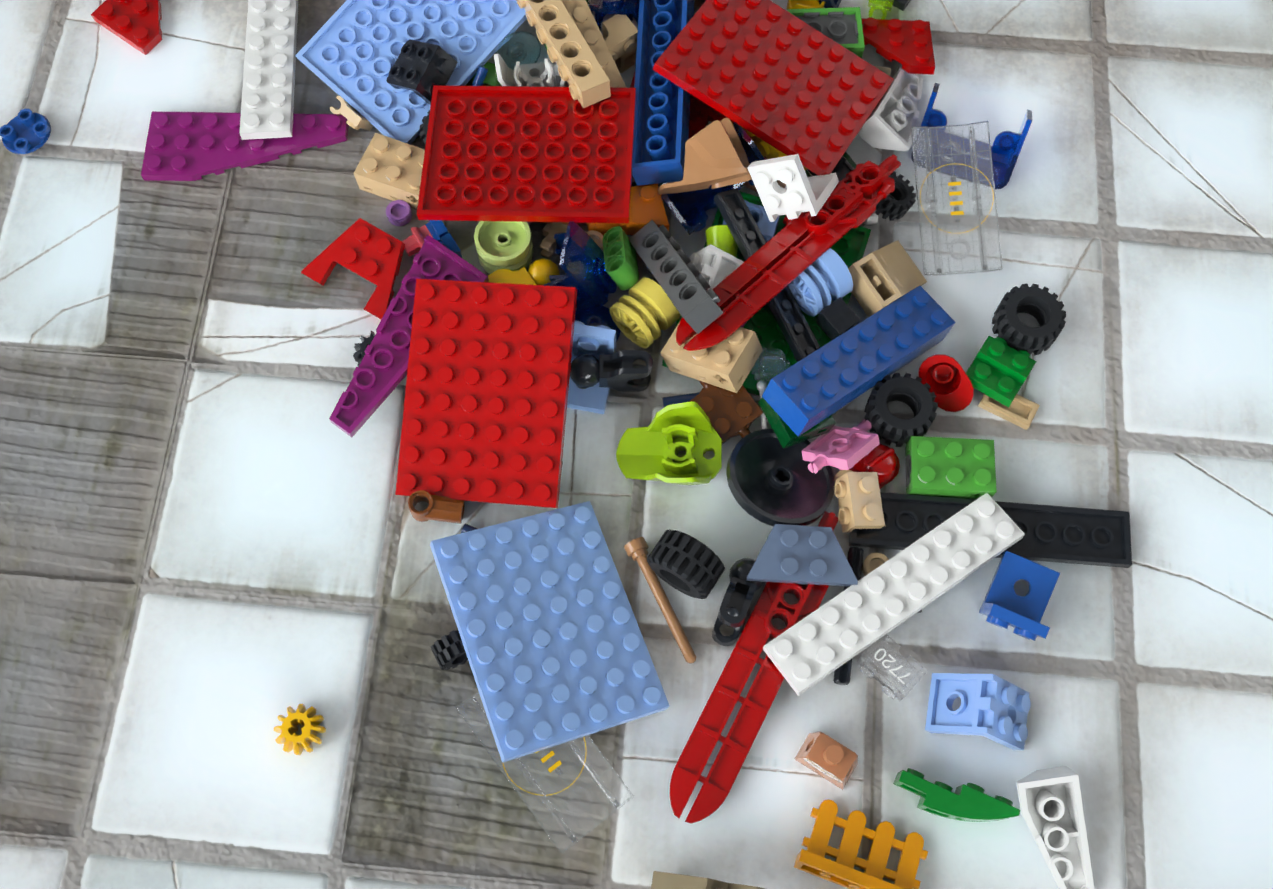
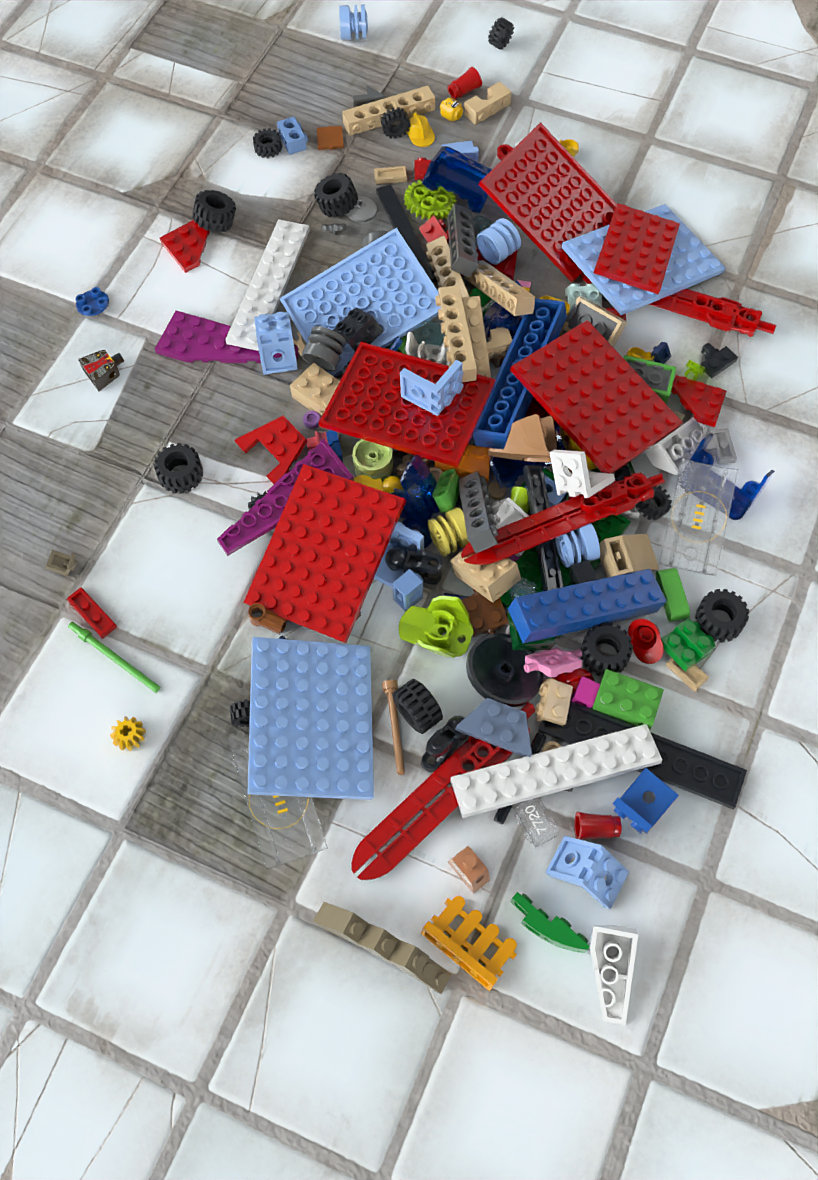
camera: 20 degrees right, 5 degrees down
(73, 223) = (101, 368): none -> dark brown torso
(116, 518) = (61, 563): none -> dark tan bracket
(185, 575) = (91, 613): none -> red tile
(190, 610) = (86, 636): none -> bright green bar
(229, 317) = (173, 457): none -> black tyre
(308, 112) = (274, 337): none -> light blue bracket
(384, 108) = (324, 348): none -> dark grey wheel
(557, 133) = (430, 395): none -> light blue bracket
(616, 409) = (408, 590): none -> medium blue brick
(683, 238) = (495, 491): none -> tan tile
(896, 475) = (585, 692): none -> dark pink panel
(949, 98) = (722, 447): none -> light grey hinge
(951, 297) = (672, 589): none -> bright green beam
(969, 647) = (596, 826): none -> red plant

